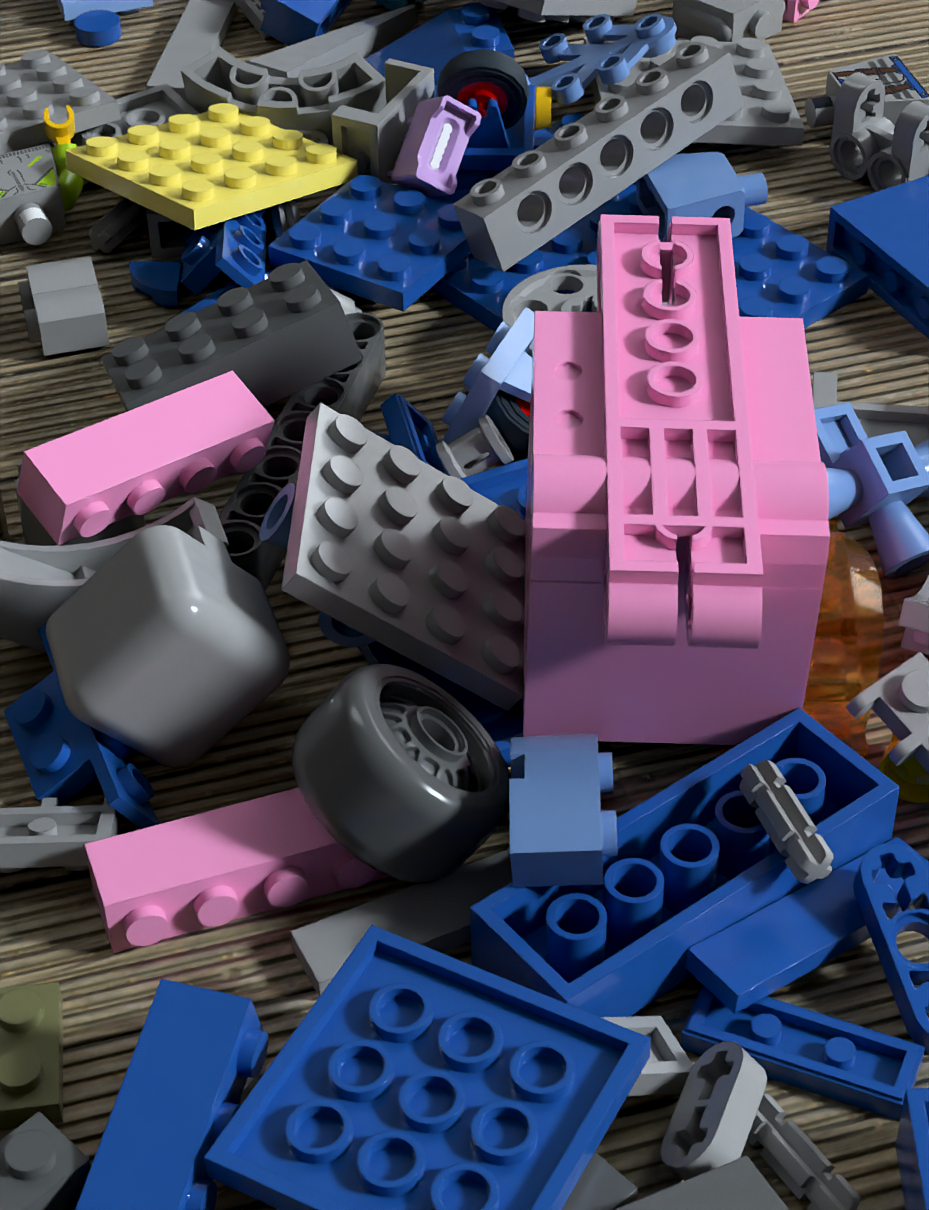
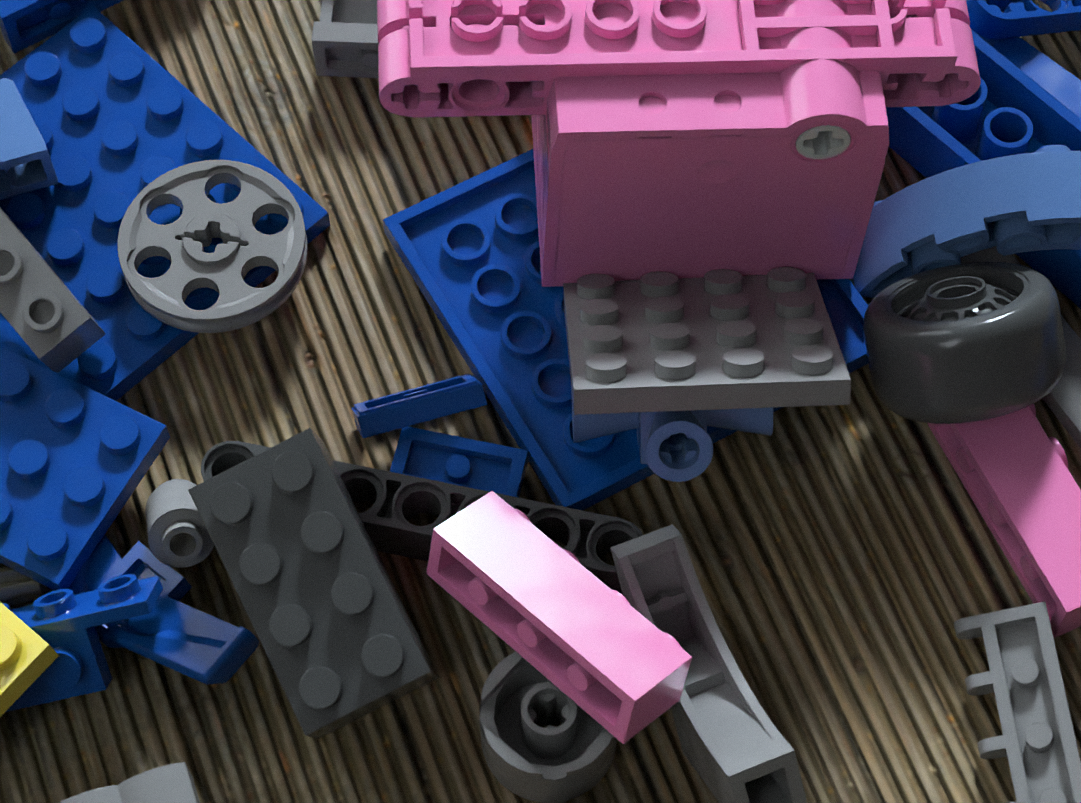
camera: 95 degrees left, 20 degrees up
(68, 754) = (886, 680): blue bracket -> none
(158, 280) = (60, 739): blue tile -> none
(167, 645) = (846, 554): light grey piece -> none
(475, 450) = (430, 346): light grey bush -> none
(498, 387) = (340, 318): light blue plate -> none
(786, 821) = (1001, 46): light grey axle -> none

